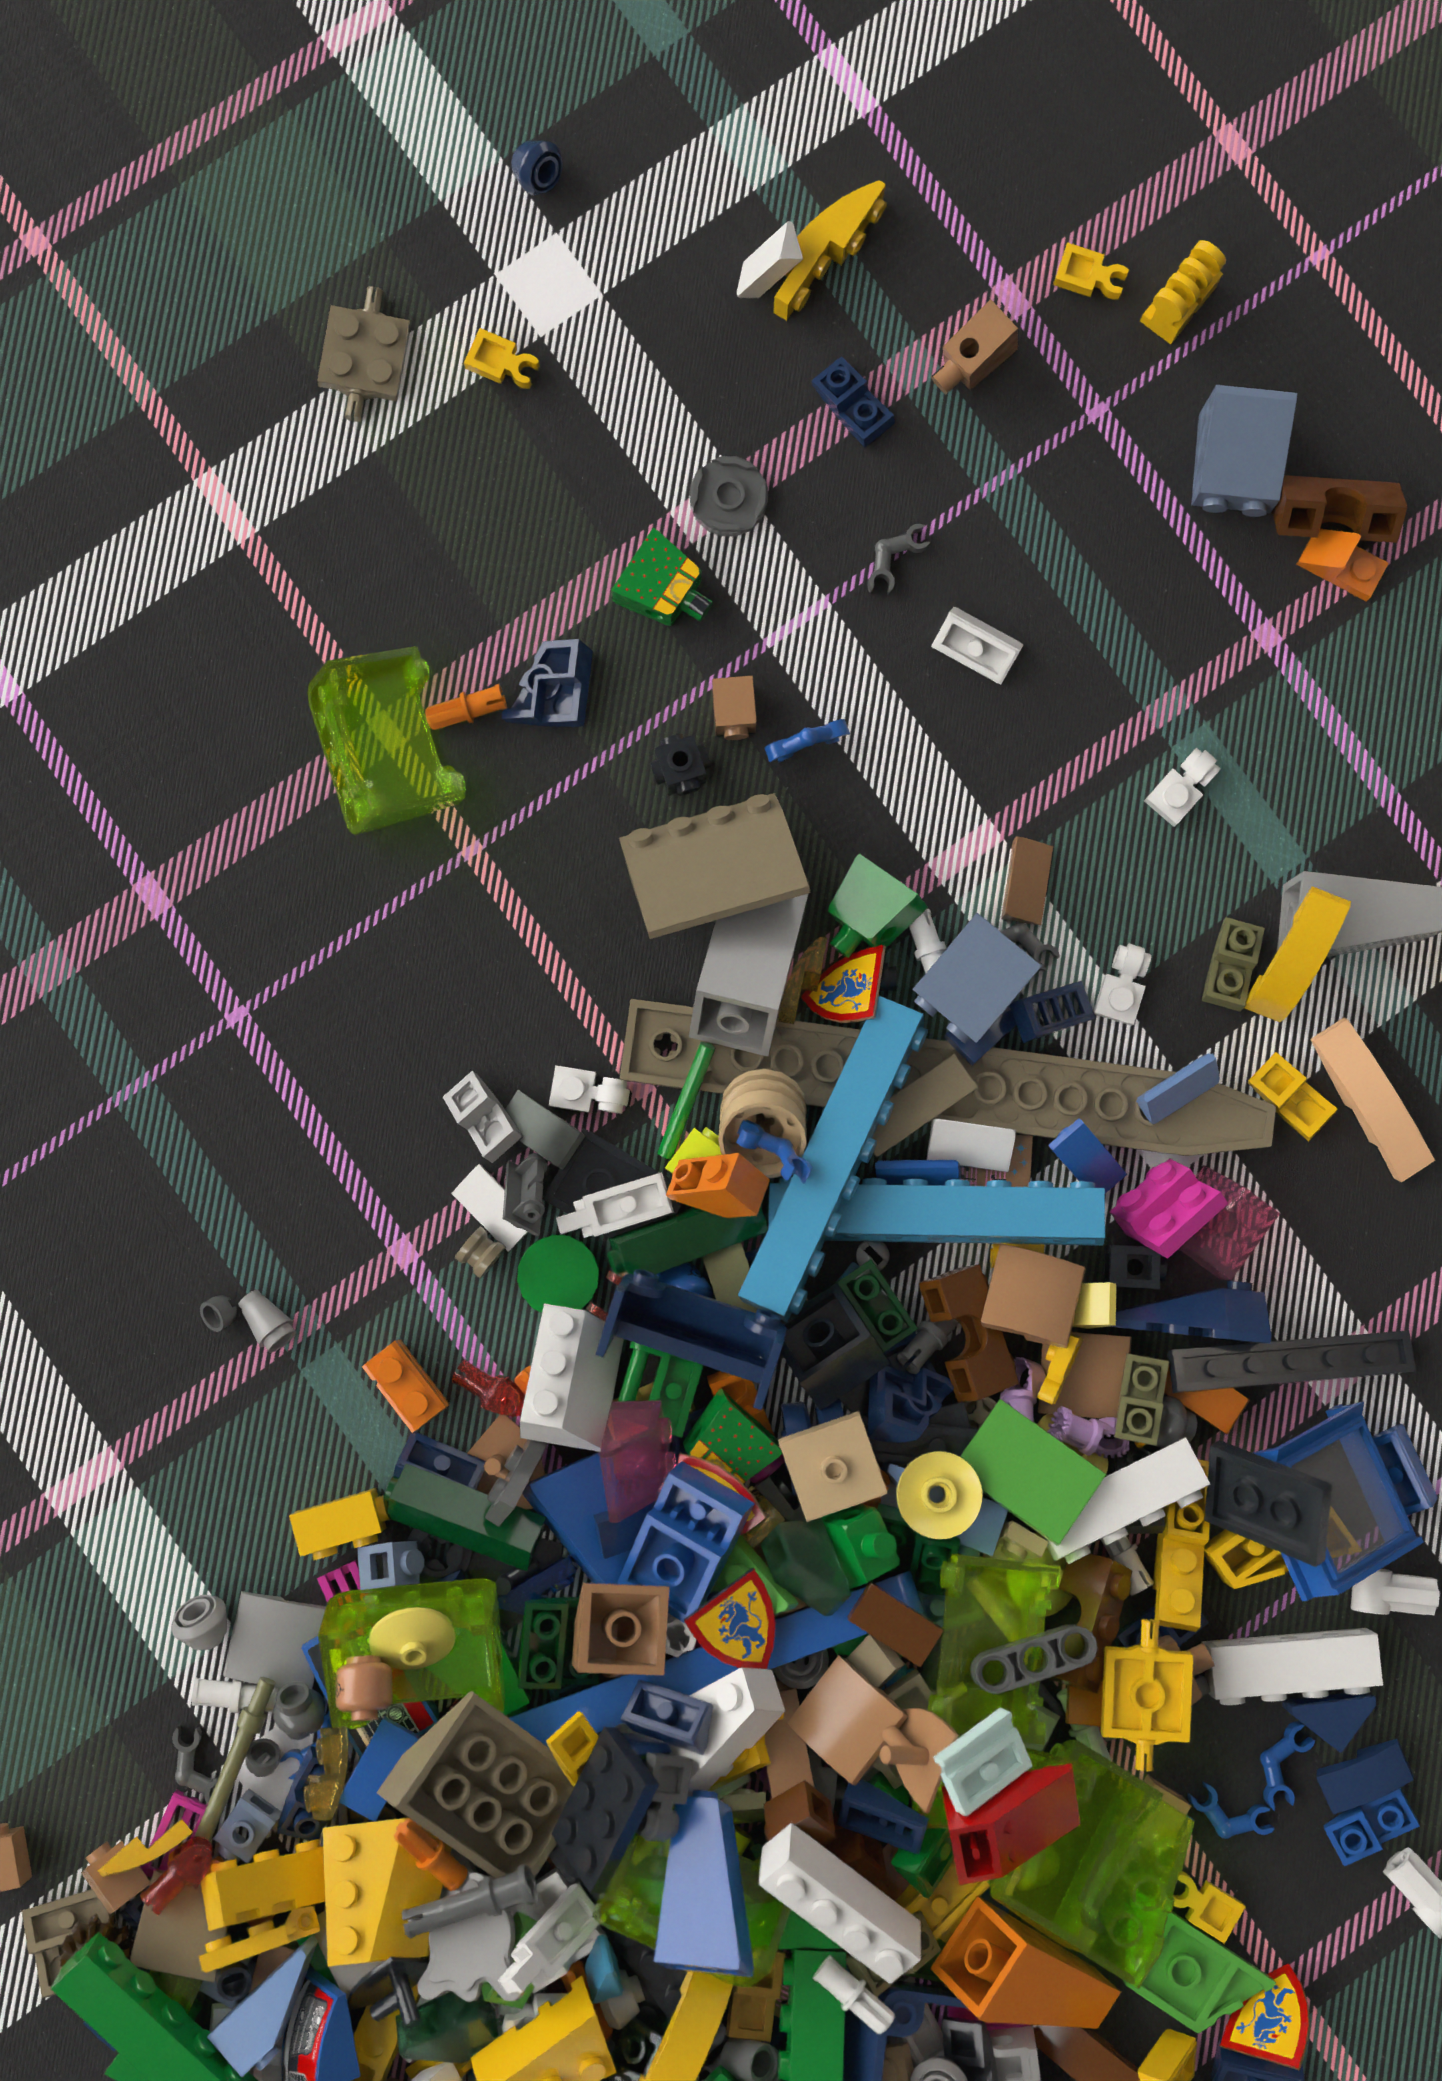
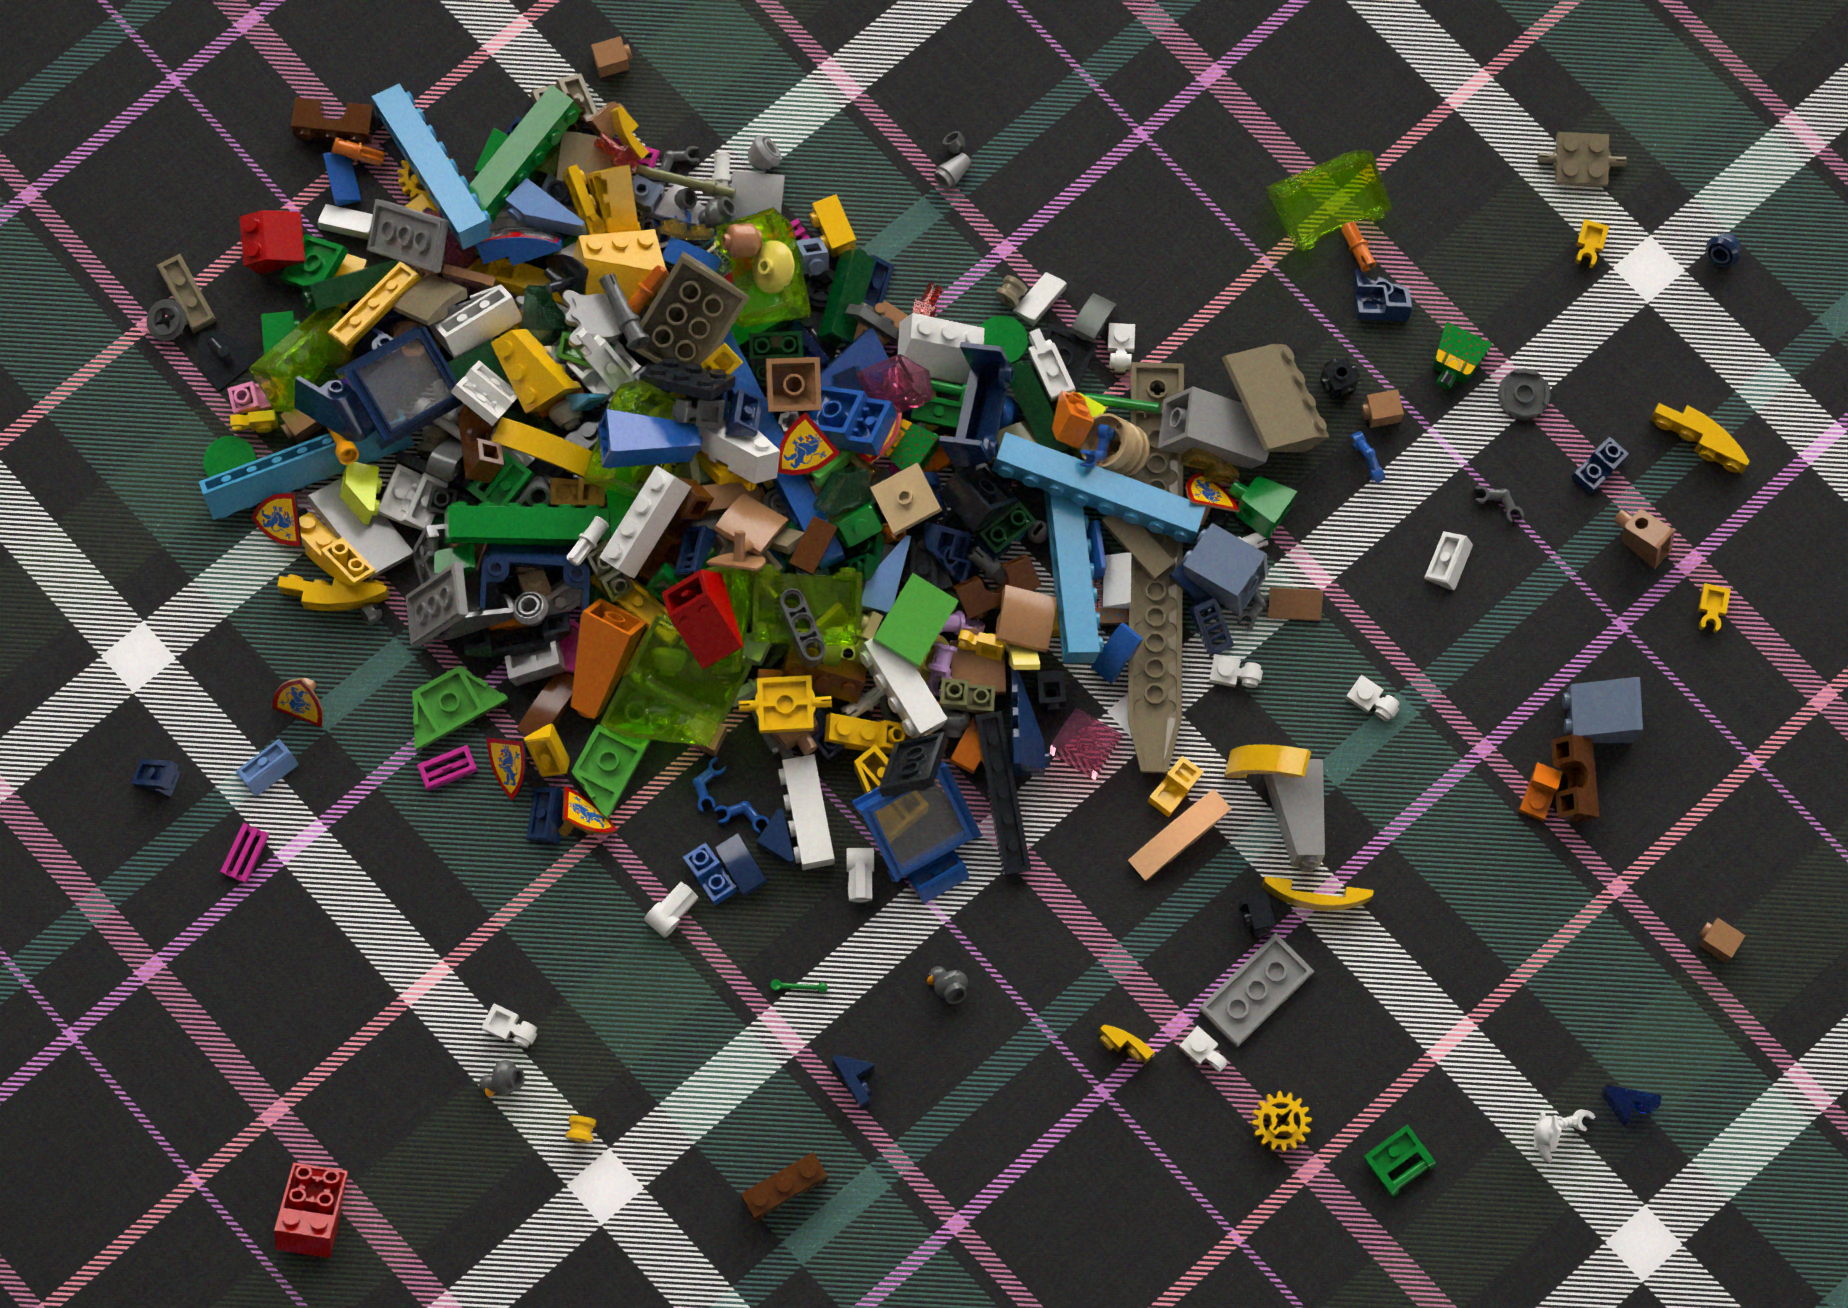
camera: 85 degrees right, 10 degrees down
(406, 1385) = (922, 255): orange brick -> none
(482, 1116) = (1098, 283): light grey slope -> none
(524, 1193) = (1051, 310): dark grey hinge -> none
(769, 262) = (1680, 398): white slope -> none
(960, 1499) = (904, 552): light yellow dish -> none
(983, 1761) = (741, 589): light aqua plate -> none
(1167, 1208) = (1093, 702): dark pink plate -> none
(1179, 1088) = (1171, 705): medium blue slope -> none
(1185, 291) = (1698, 660): yellow legs -> none
(1209, 1908) = (649, 775): yellow plate -> none
(1232, 964) = (1248, 735): olive slope -> none

